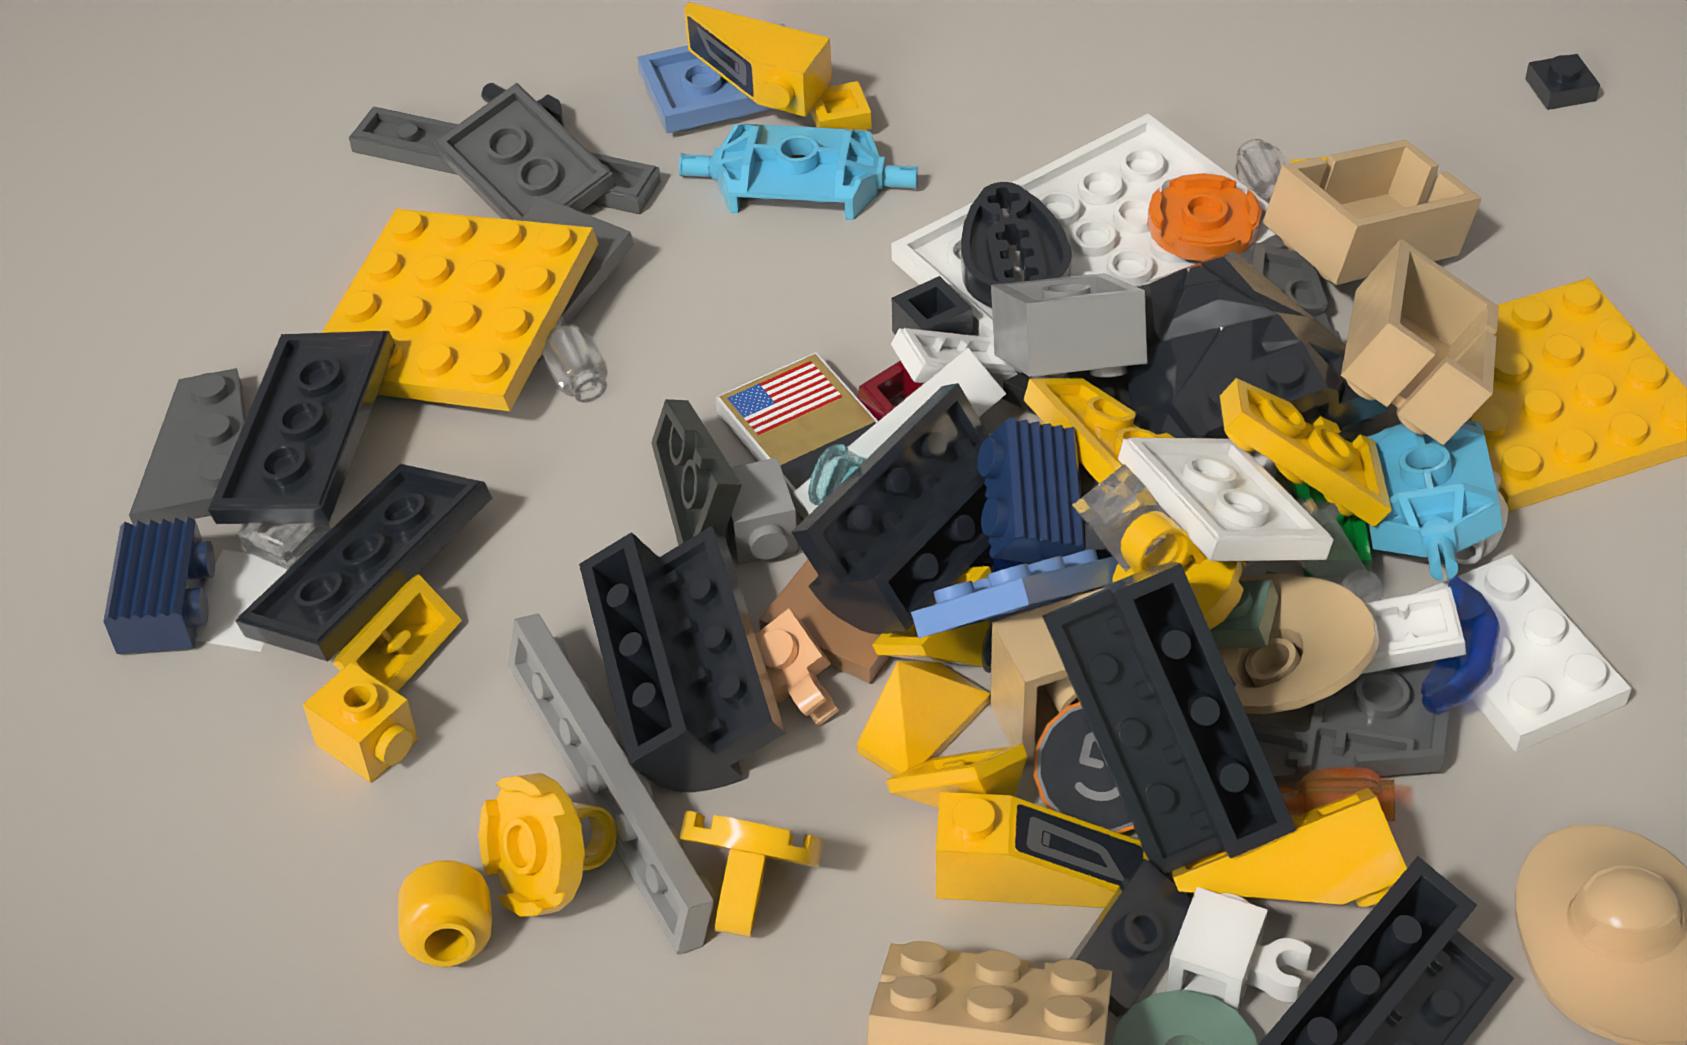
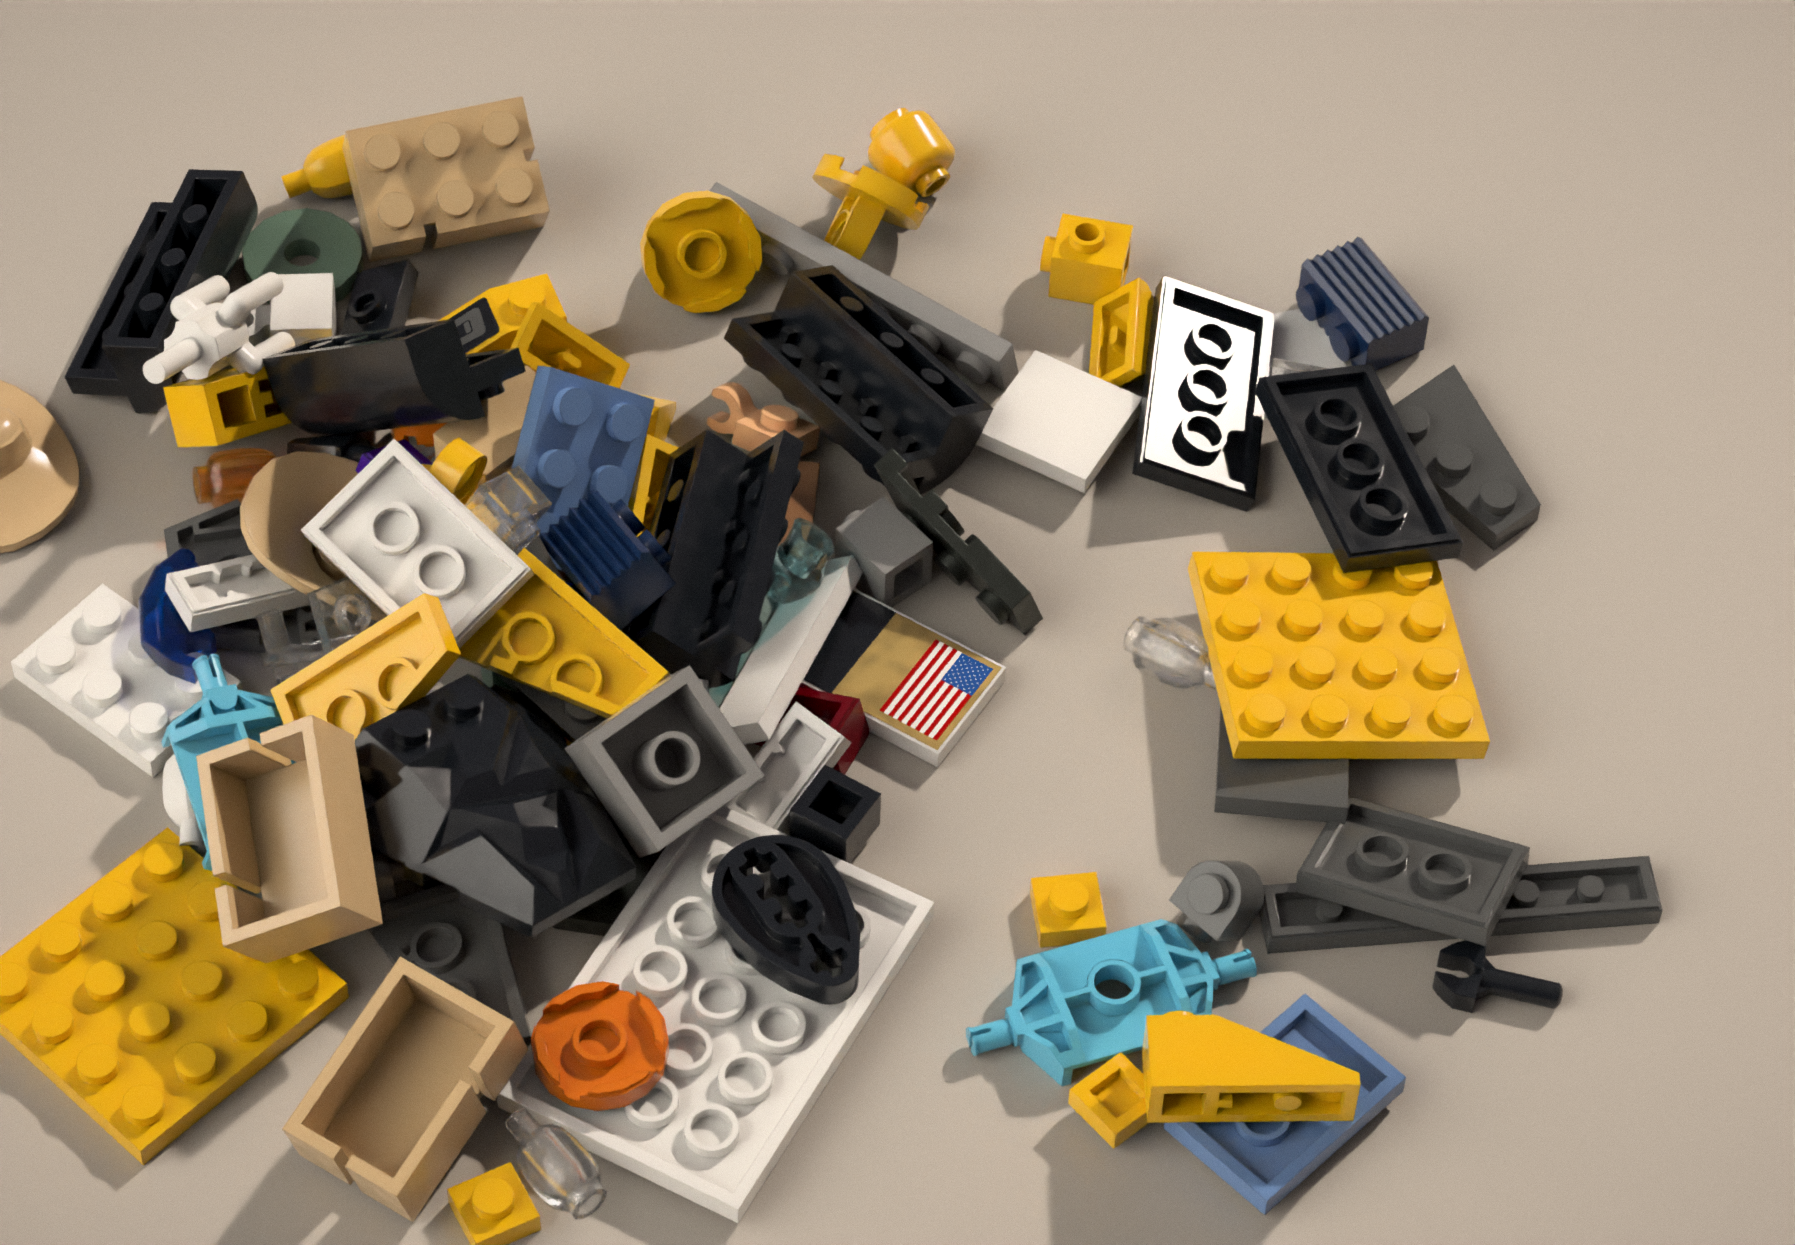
camera: 150 degrees right, 5 degrees up
(510, 576) = (1060, 421): none -> white tile
(678, 186) = (1219, 900): none -> dark grey plate
(787, 235) = (1067, 908): none -> yellow plate
(1349, 852) = (216, 333): none -> white plant

